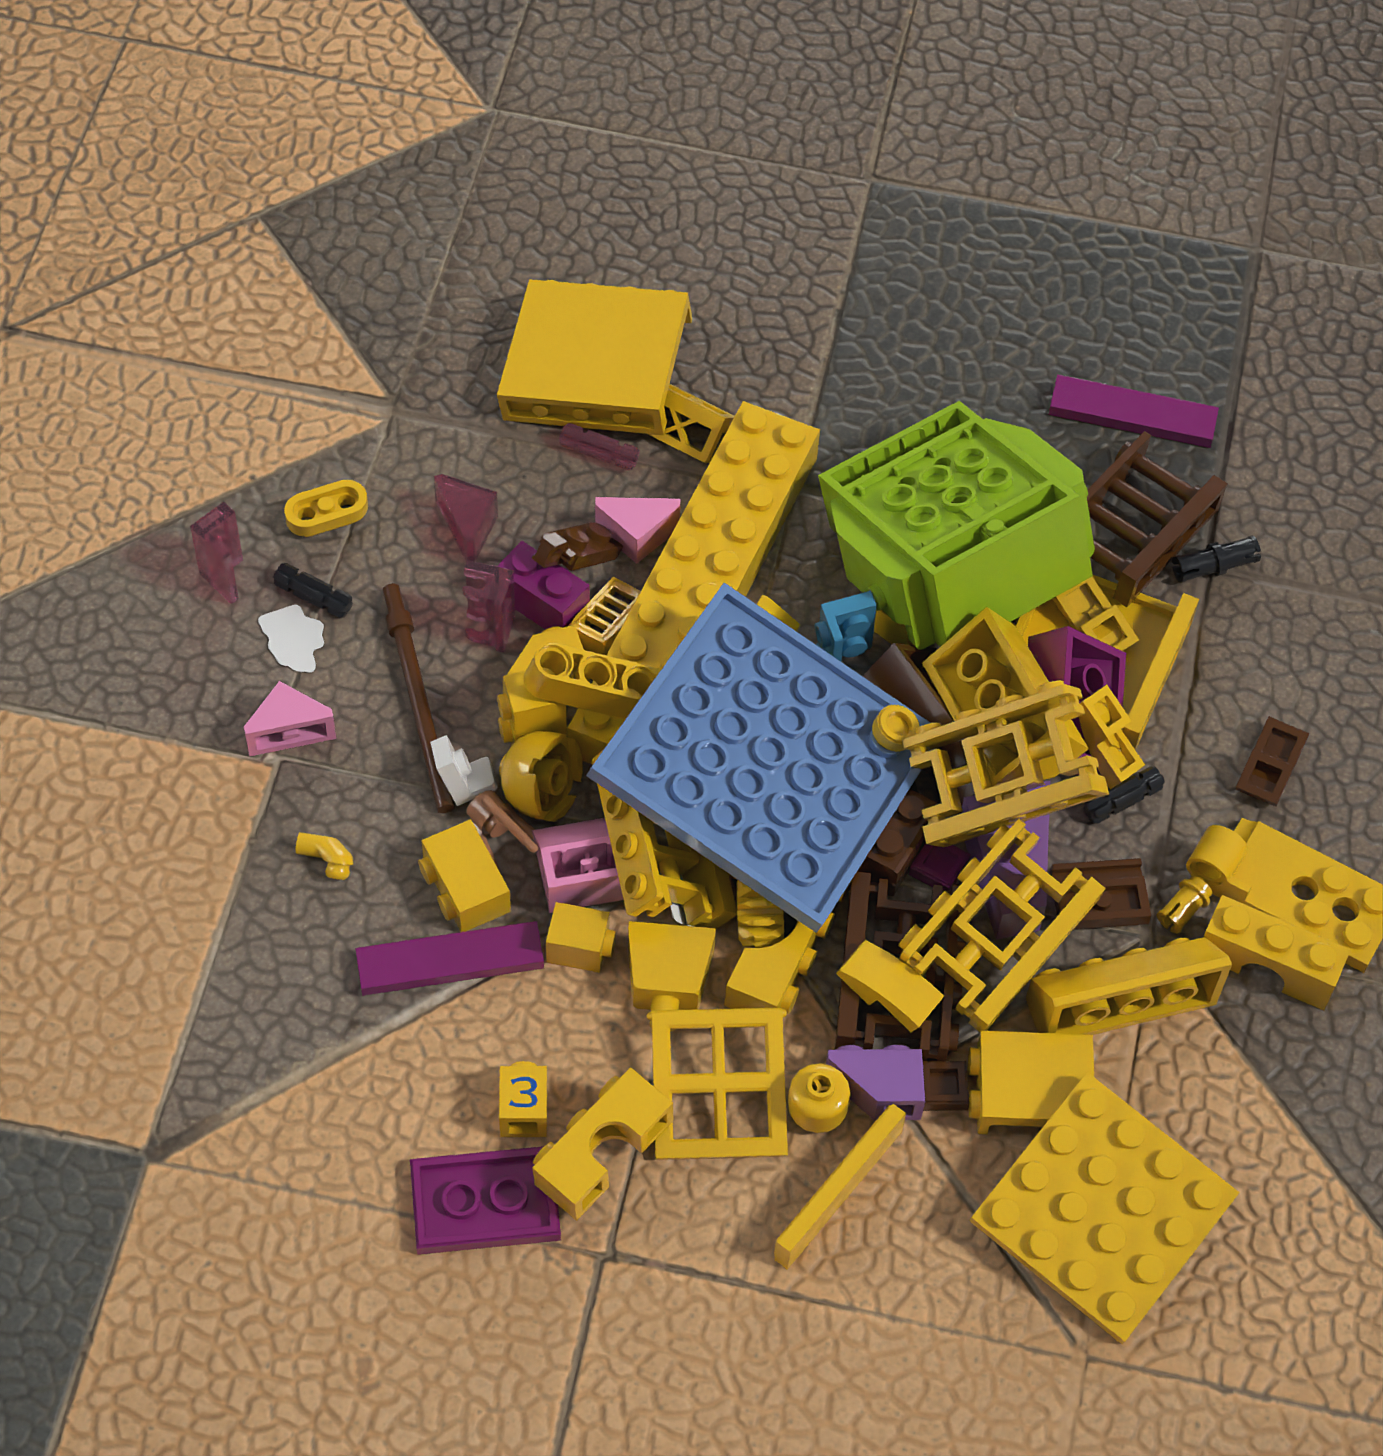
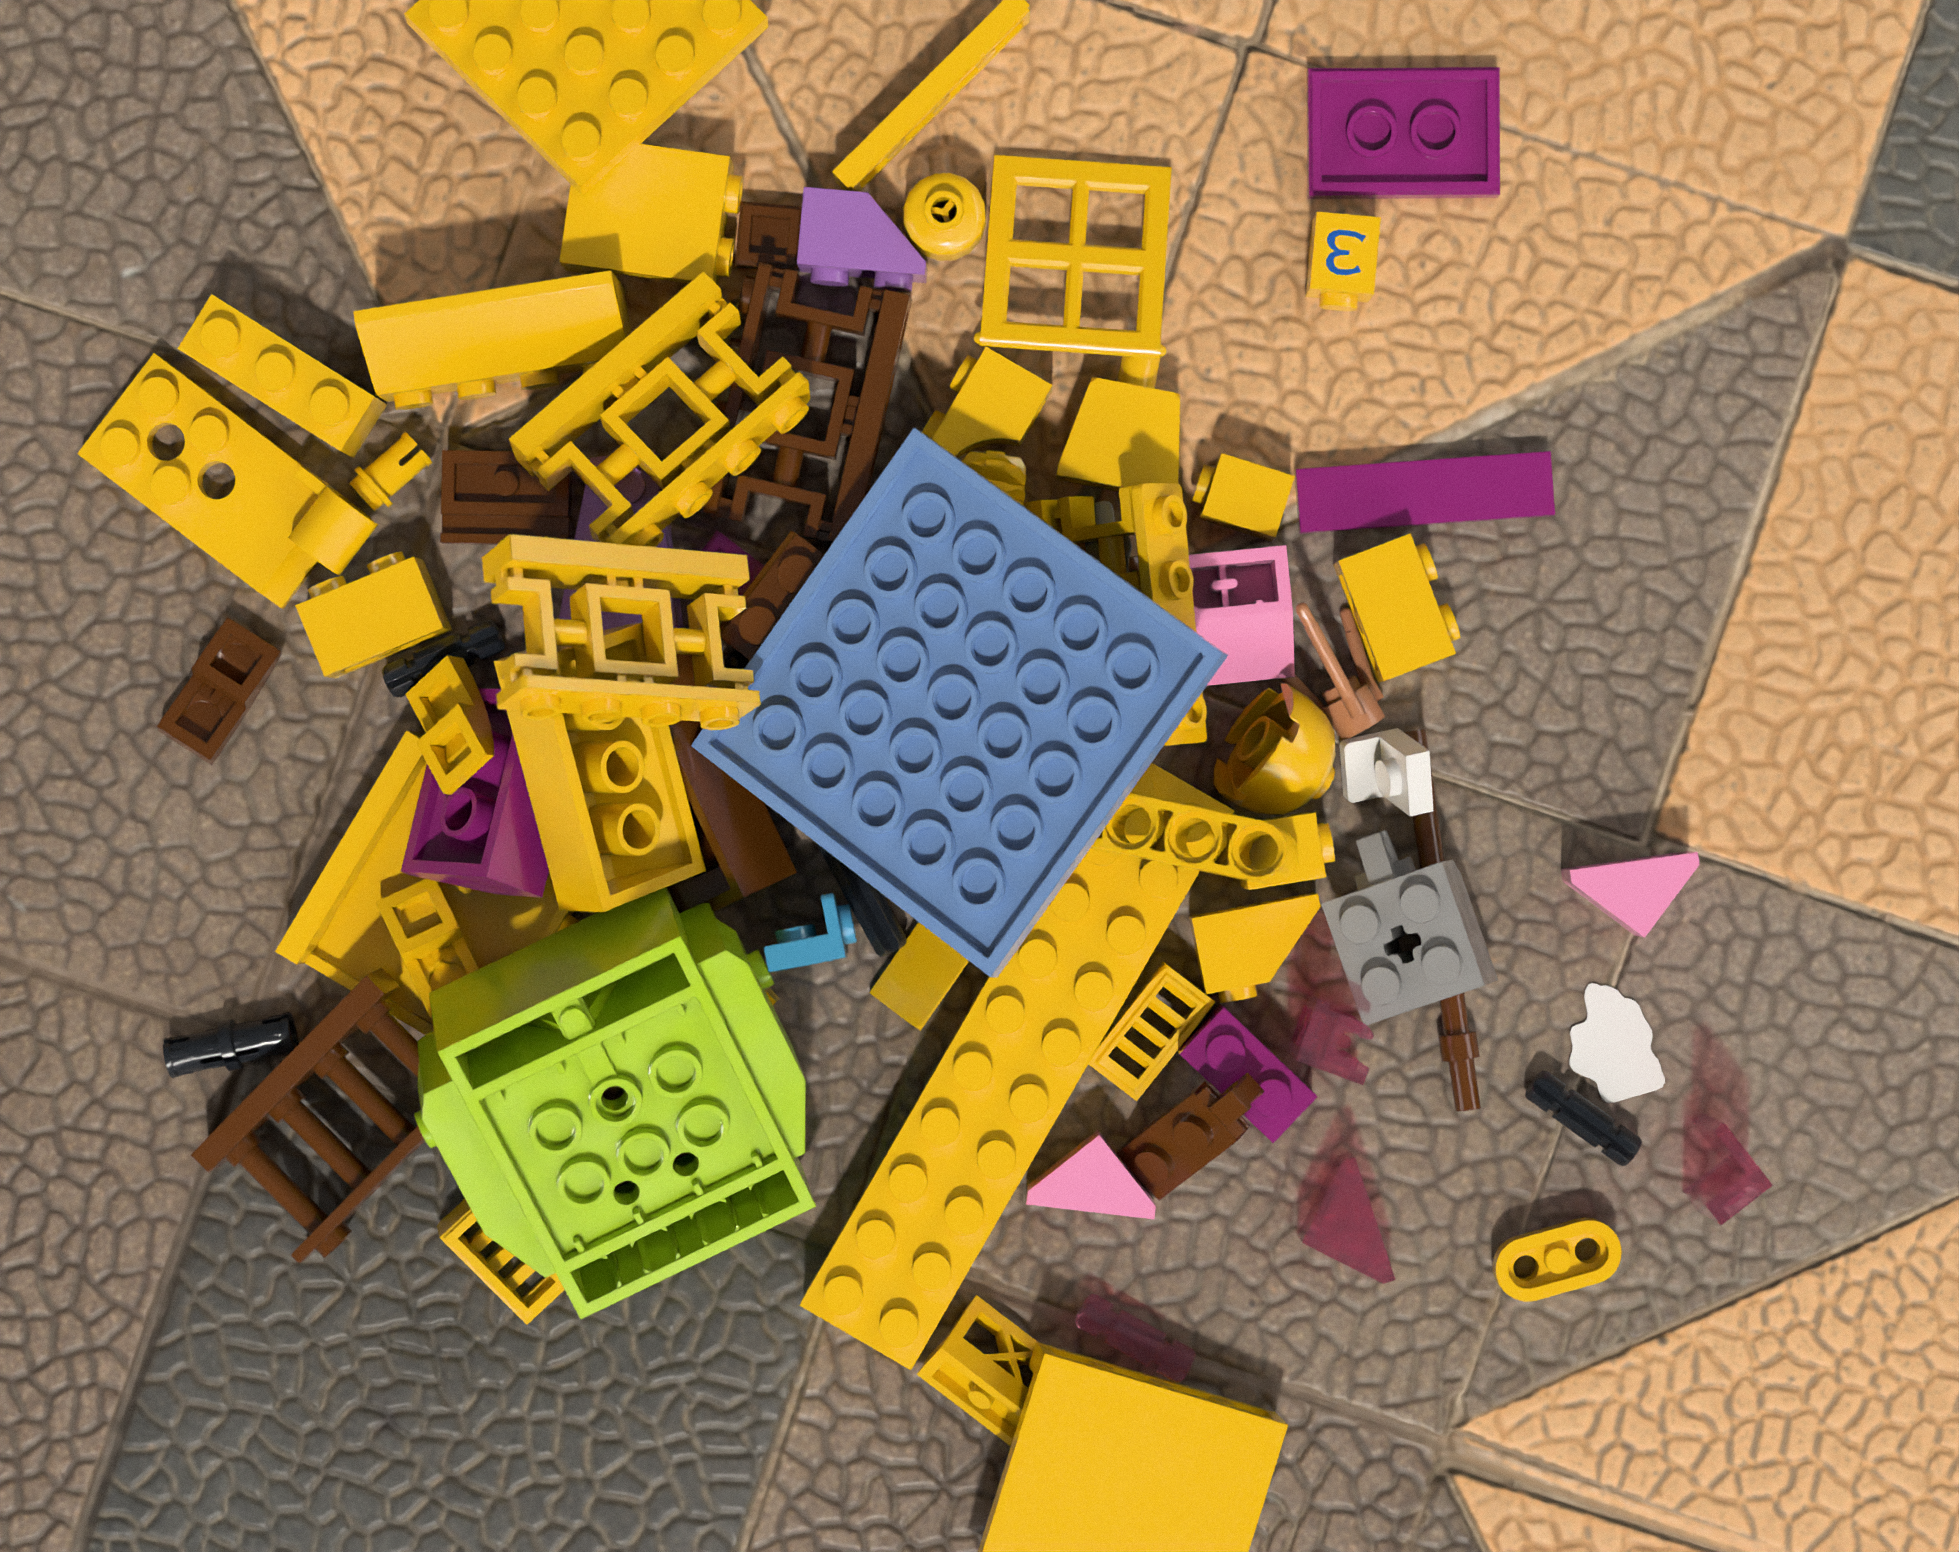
camera: 170 degrees left, 30 degrees up
(328, 849) = (1579, 672): yellow arm -> none
(440, 669) = (1400, 900): none -> light grey hinge
(626, 1111) = (1205, 209): yellow arch -> none
(893, 726) = (764, 741): yellow tile -> none
(899, 988) = (827, 356): yellow slope -> none
(1133, 411) = (304, 1331): magenta tile -> none
(1176, 810) = (372, 615): none -> yellow brick

